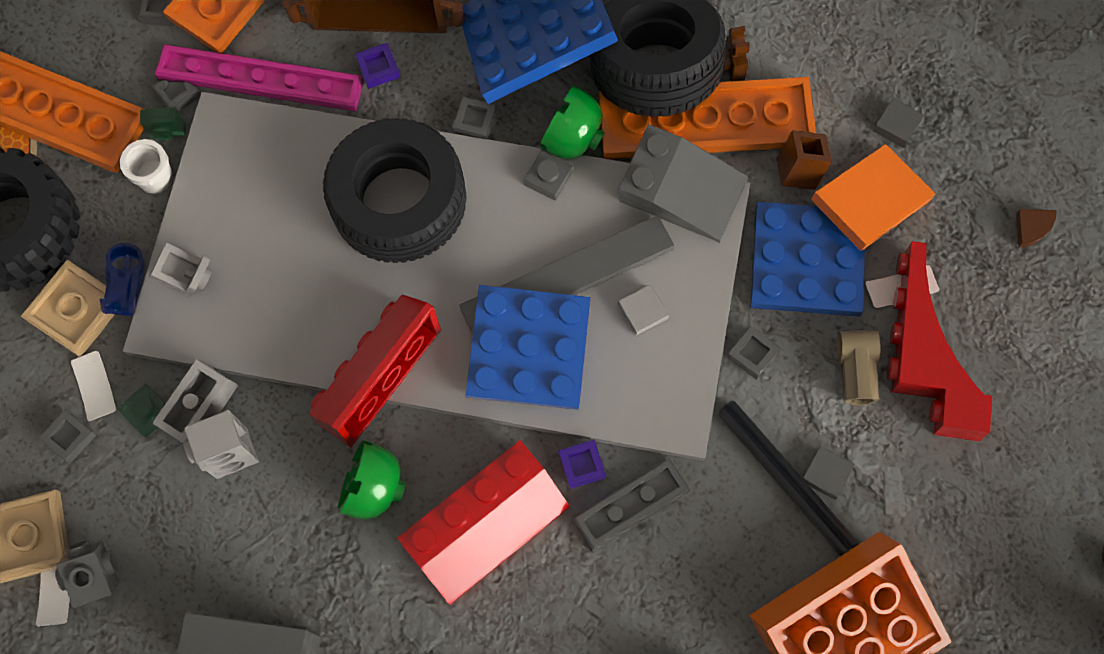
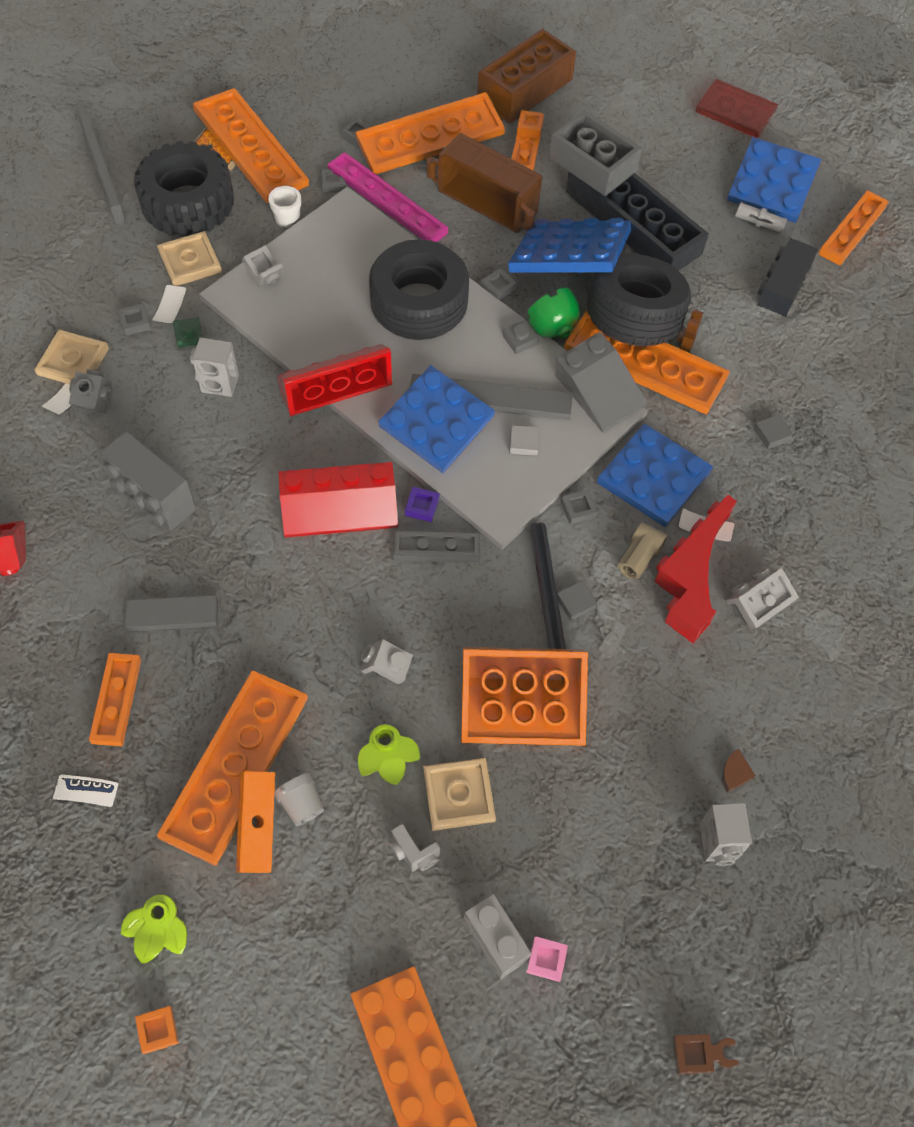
camera: 25 degrees right, 10 degrees down
(123, 283) = (226, 259): clear blue piece -> none
(162, 123) = (312, 189): clear green plate -> none
(196, 398) = (222, 328): light grey brick -> none
(371, 483) = (287, 438): green cylinder -> none
(377, 65) = (461, 226): dark purple plate -> none
(803, 160) = (690, 413): reddish brown brick -> none
(872, 197) = (722, 459): orange tile -> none
(1018, 339) = (763, 596): none -> light grey bracket
(1033, 225) = (823, 539): reddish brown tile -> none

